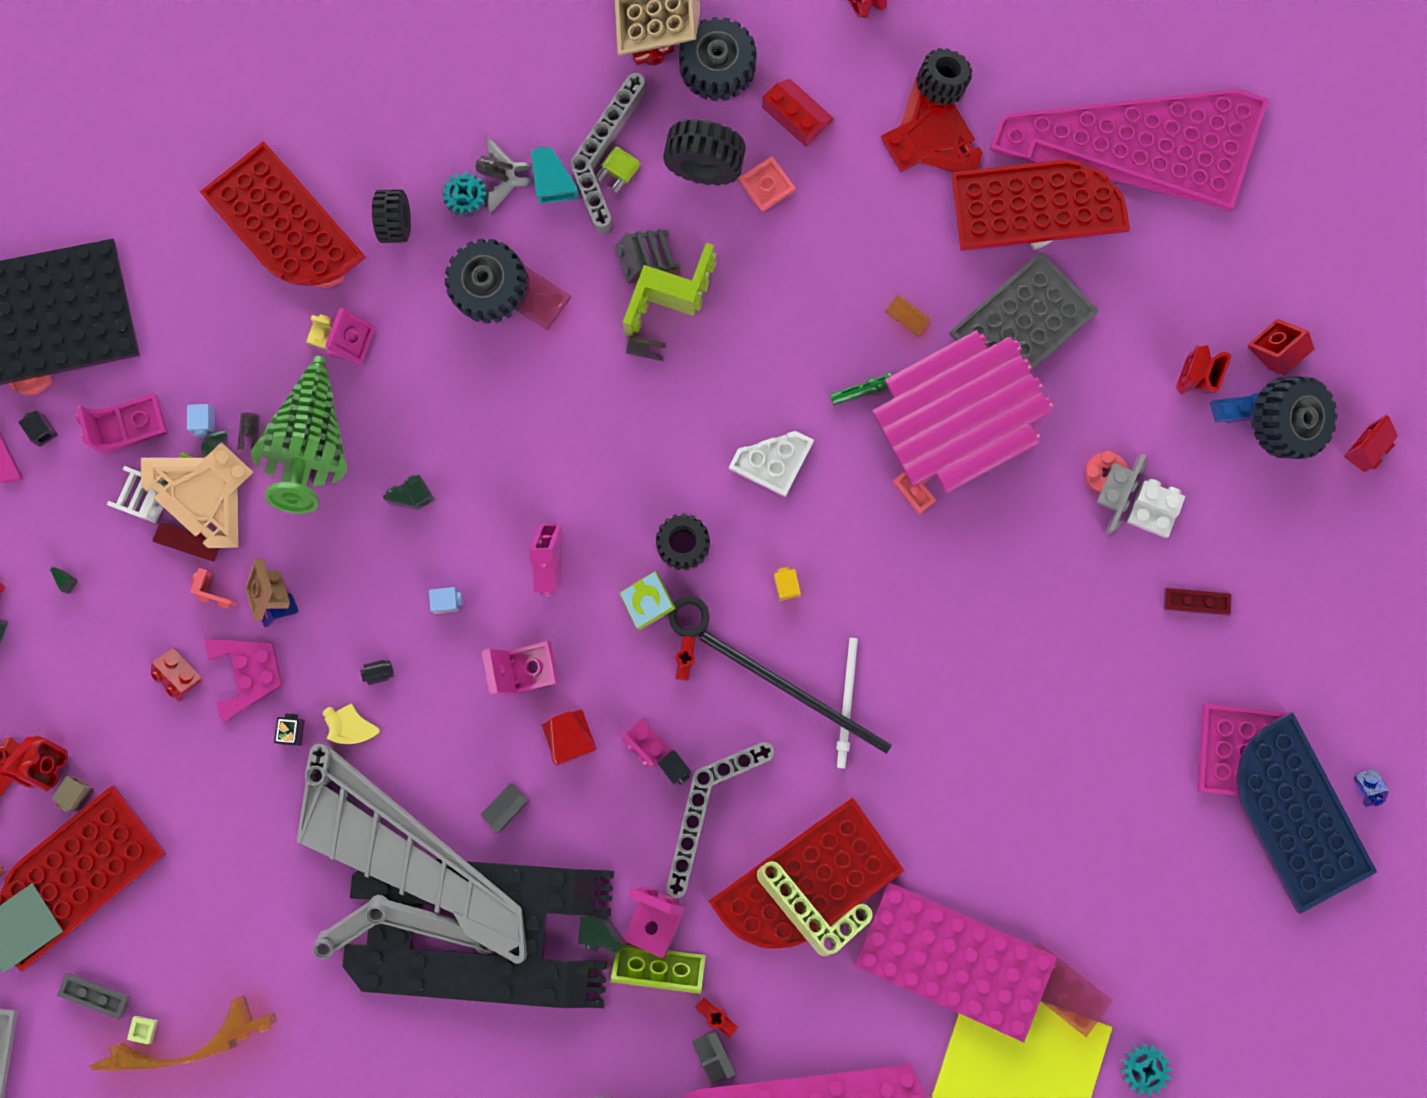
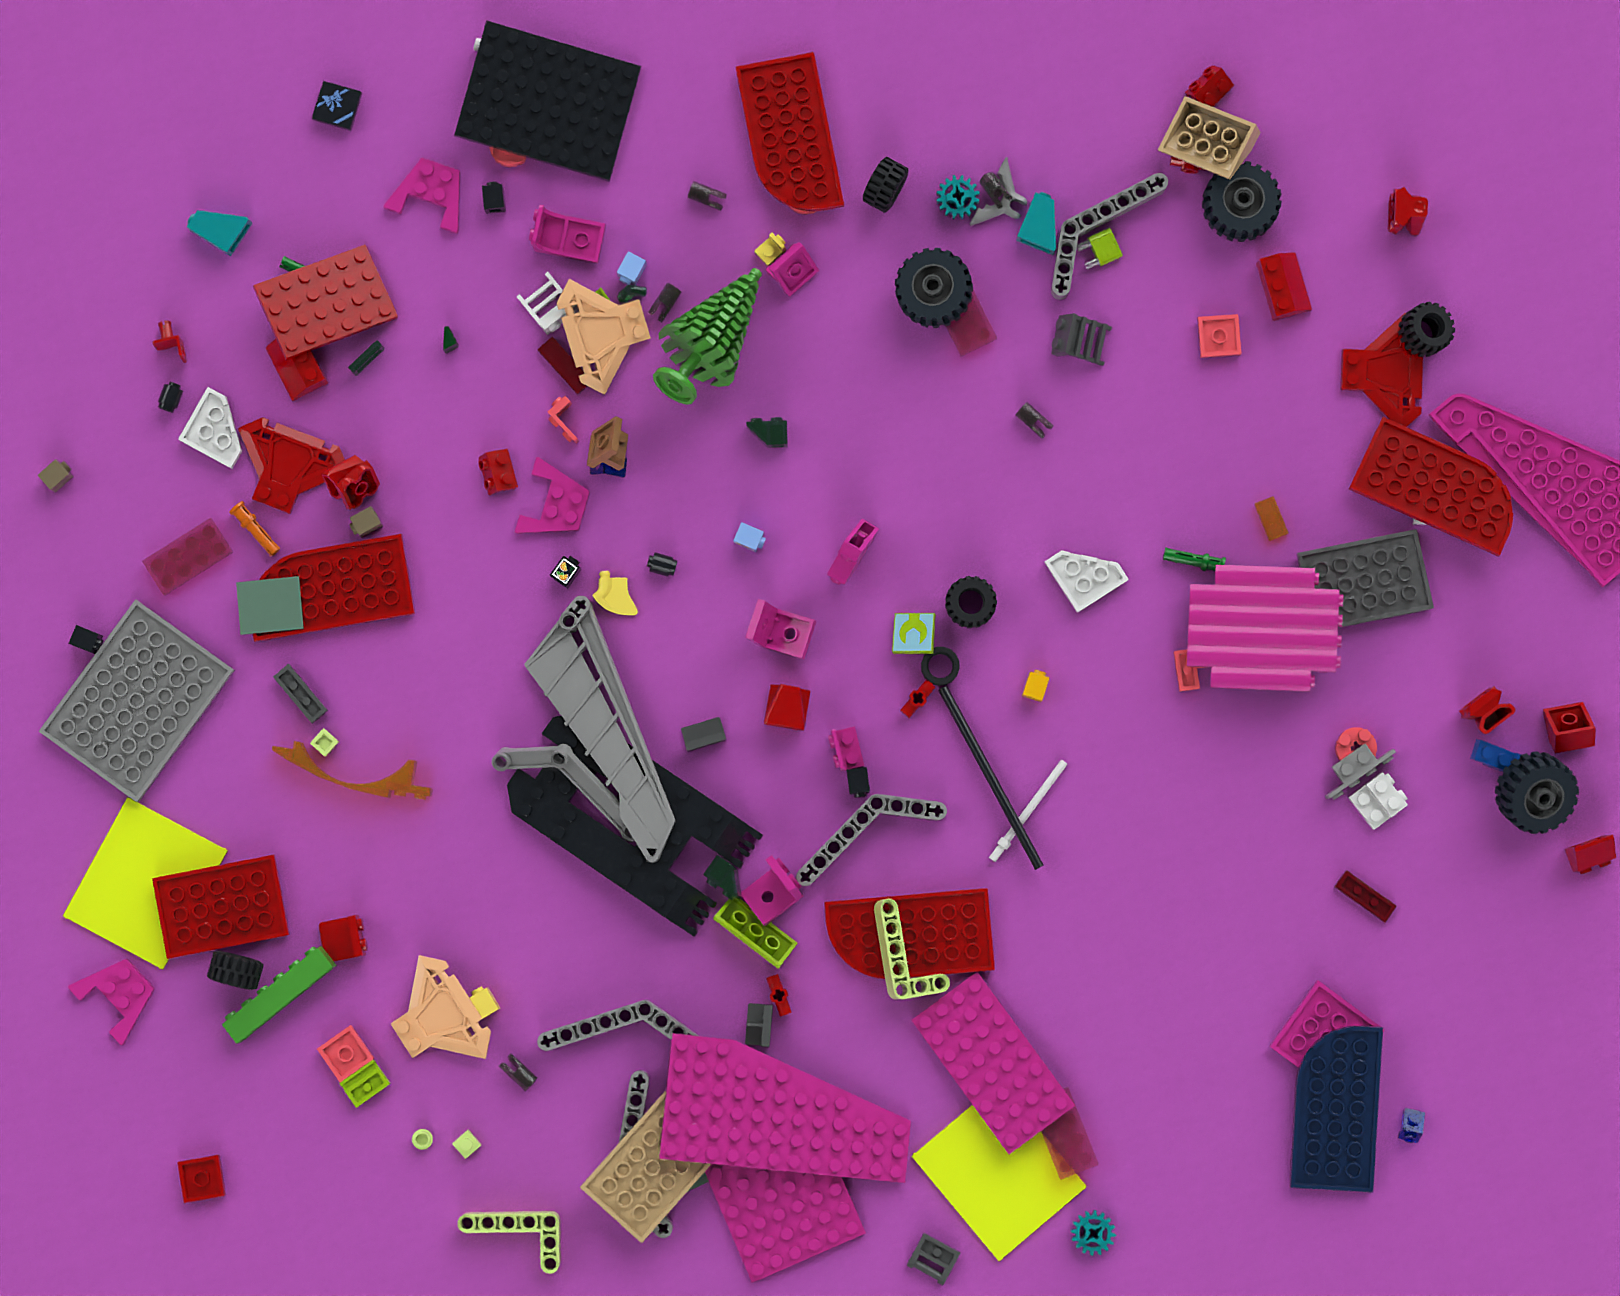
camera: 30 degrees right, 5 degrees up
(231, 317) = (702, 194): none -> clear smoke hinge
(669, 291) = (1082, 384): lime bracket -> none
(704, 152) = (1179, 282): black tyre -> none

